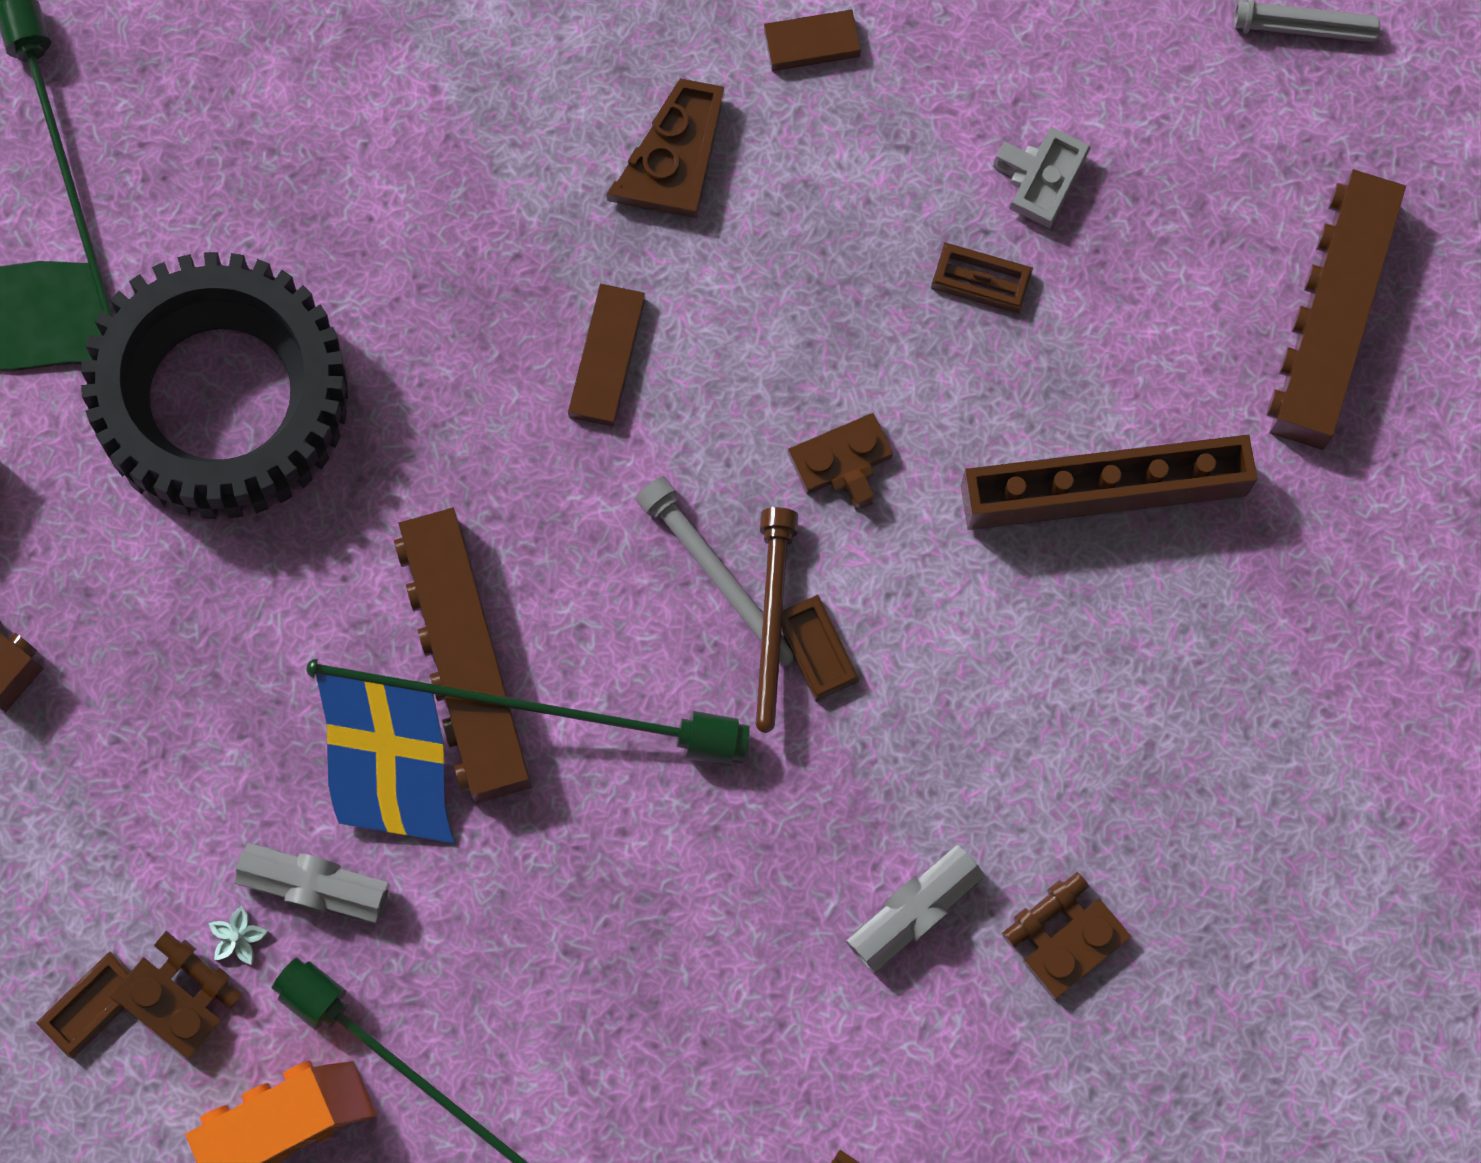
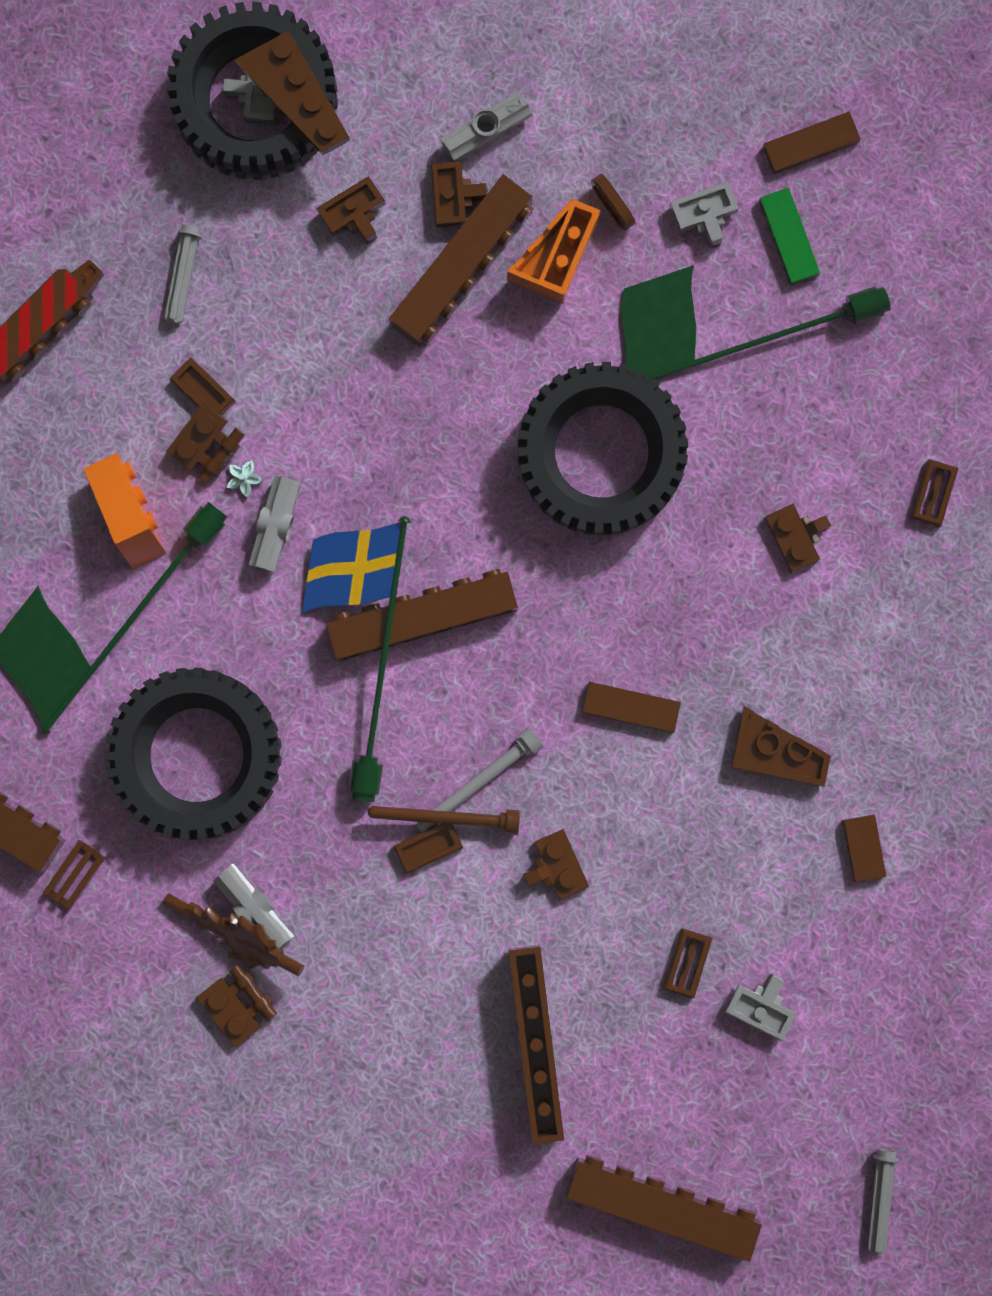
camera: 90 degrees right, 10 degrees up
(359, 126) = (796, 536): none -> reddish brown hinge
(657, 904) = (133, 740): none -> black tyre
(962, 925) = (243, 938): none -> reddish brown piece

